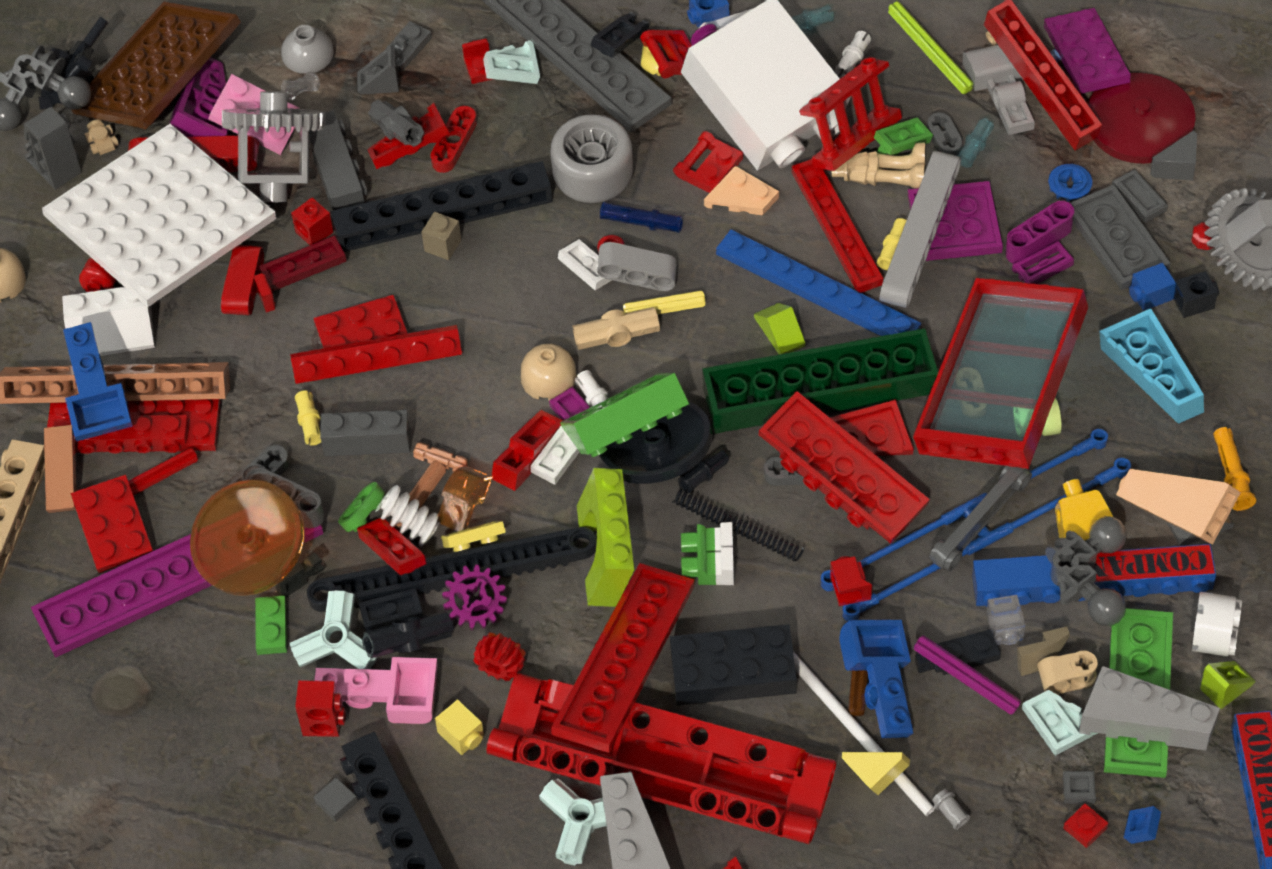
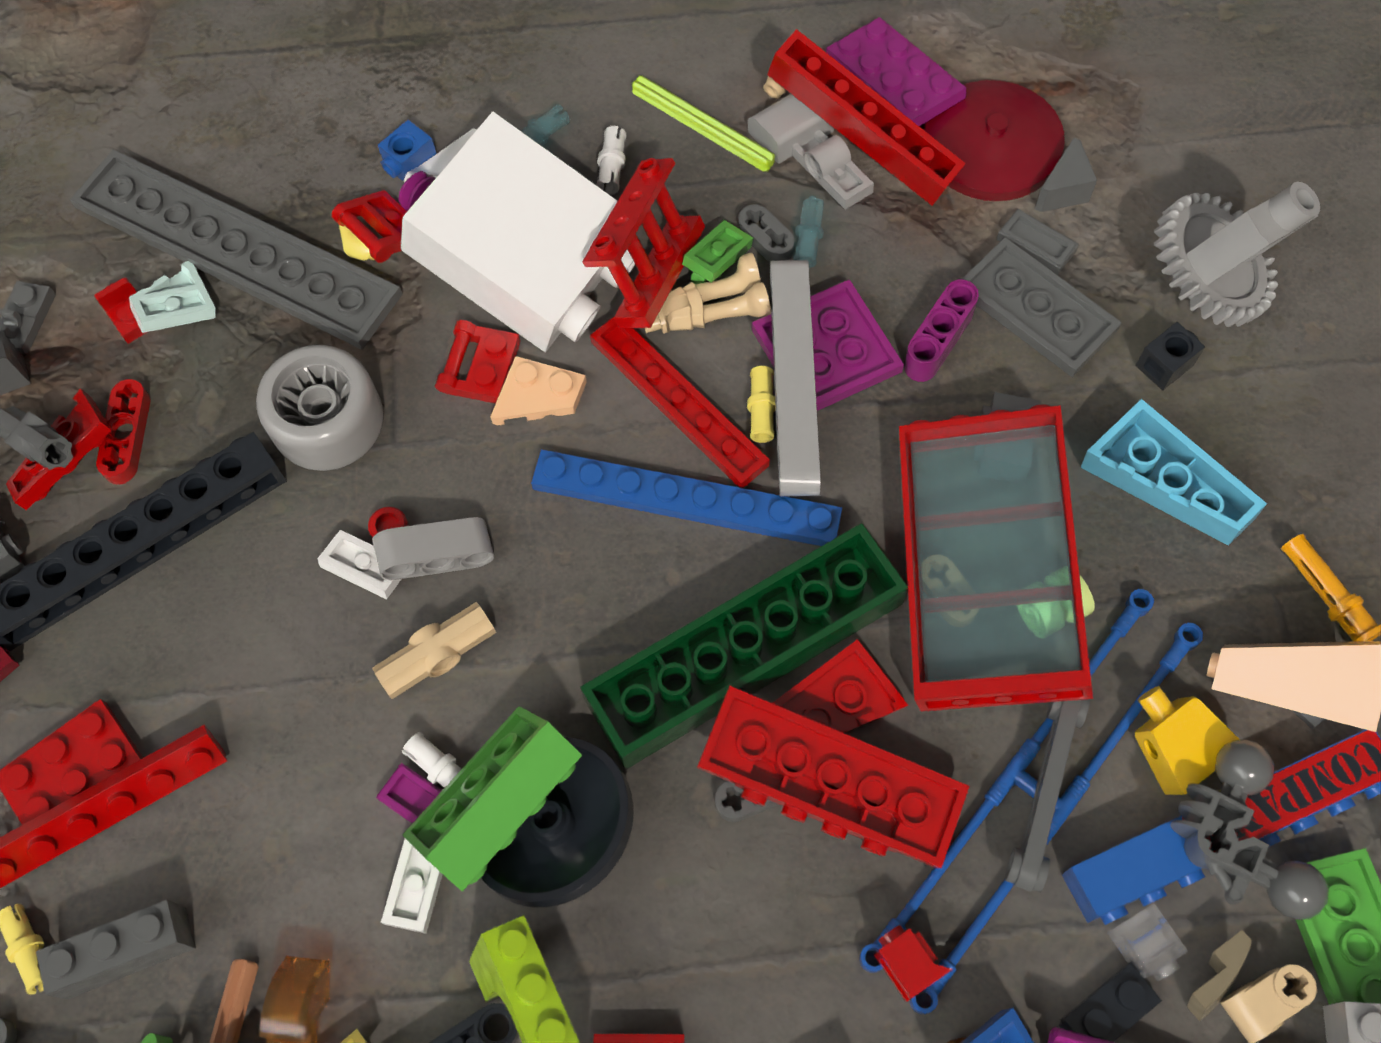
camera: 20 degrees left, 10 degrees up
(423, 452) = (243, 947): nougat axle -> none
(441, 236) = (144, 586): dark tan brick -> none
(514, 463) = (364, 893): red slope -> none
(547, 371) = (359, 751): tan cylinder -> none
(619, 35) = (302, 221): black hinge -> none
(651, 219) = (415, 469): clear blue pin -> none
(669, 303) = (491, 587): light yellow axle -> none
(679, 493) = (712, 912): black piece -> none
(703, 471) = (643, 821): black axle -> none
(714, 555) = (684, 961): bright green hips -> none
(781, 328) = (658, 574): lime slope -> none
(1046, 267) = (943, 394): magenta tile -> none
(1060, 176) = (956, 240): blue gear -> none
(1152, 287) = (1113, 361): blue brick -> none
(1199, 238) = (1141, 271): red tile -> none

